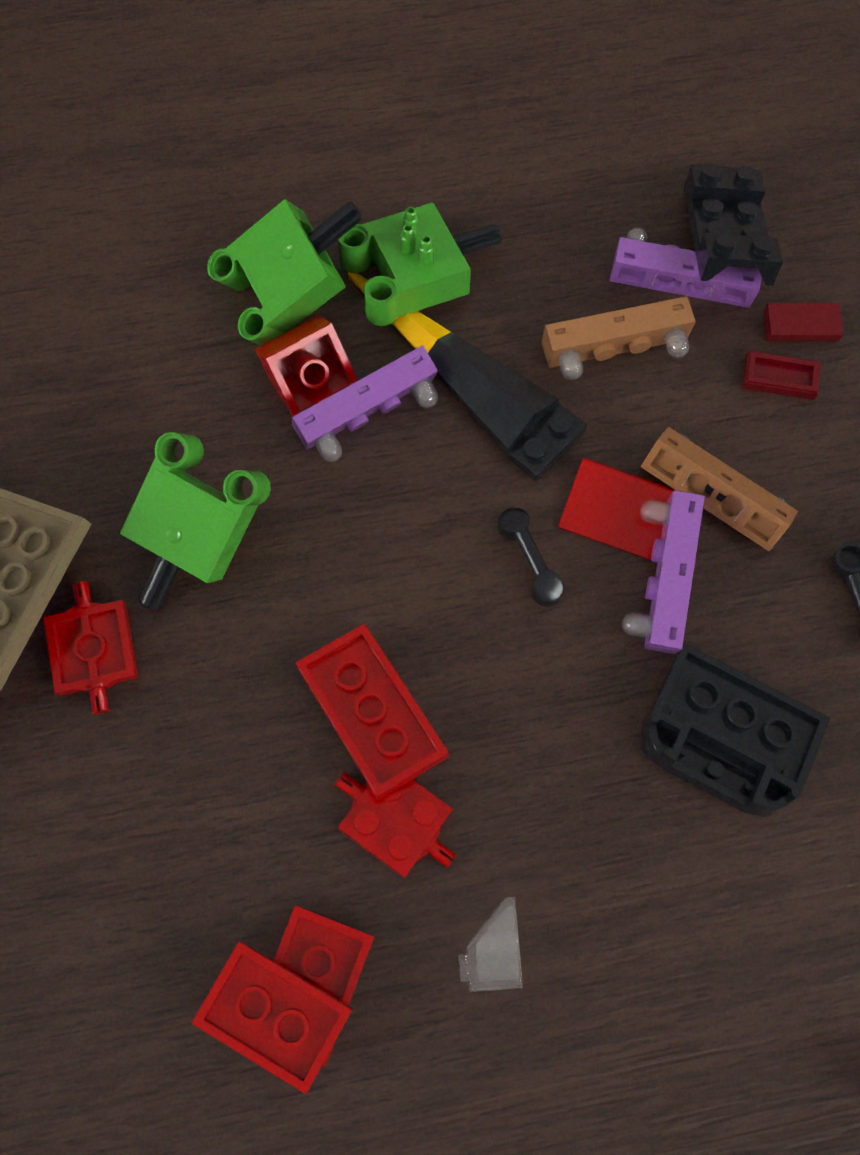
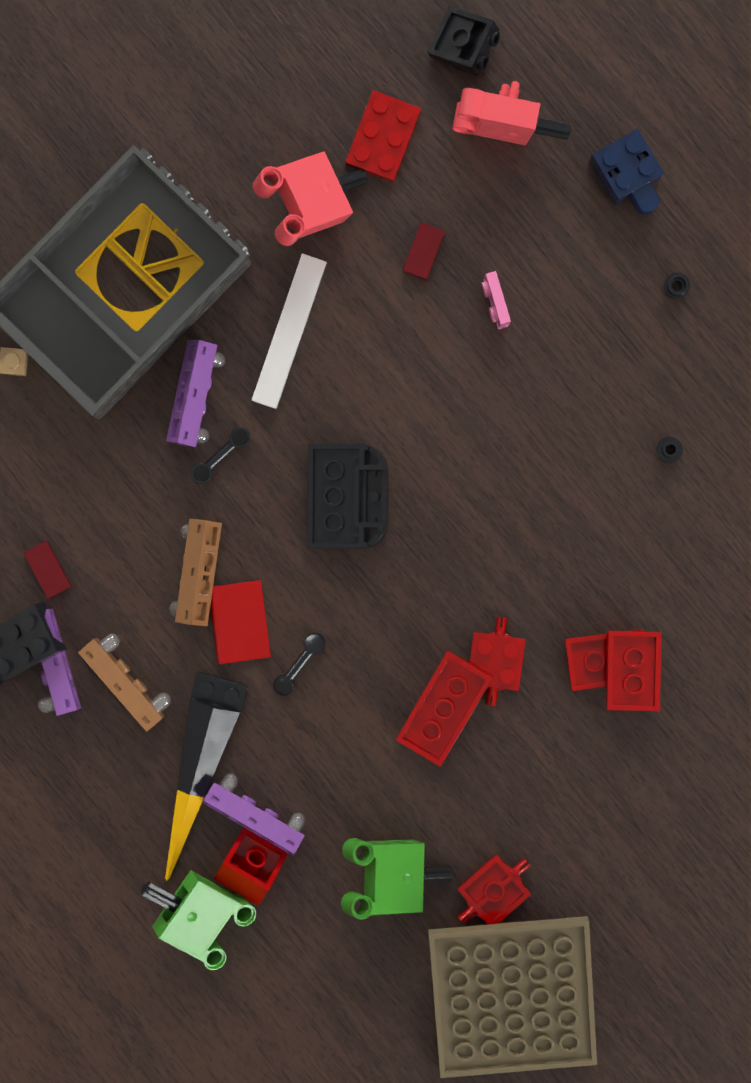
camera: 115 degrees left, 15 degrees up
(416, 260) = (141, 838): bright green piece -> none
(494, 952) = (538, 570): clear slope -> none
(674, 572) = (274, 572): medium lavender piece -> none
(781, 375) = (93, 567): dark red tile -> none

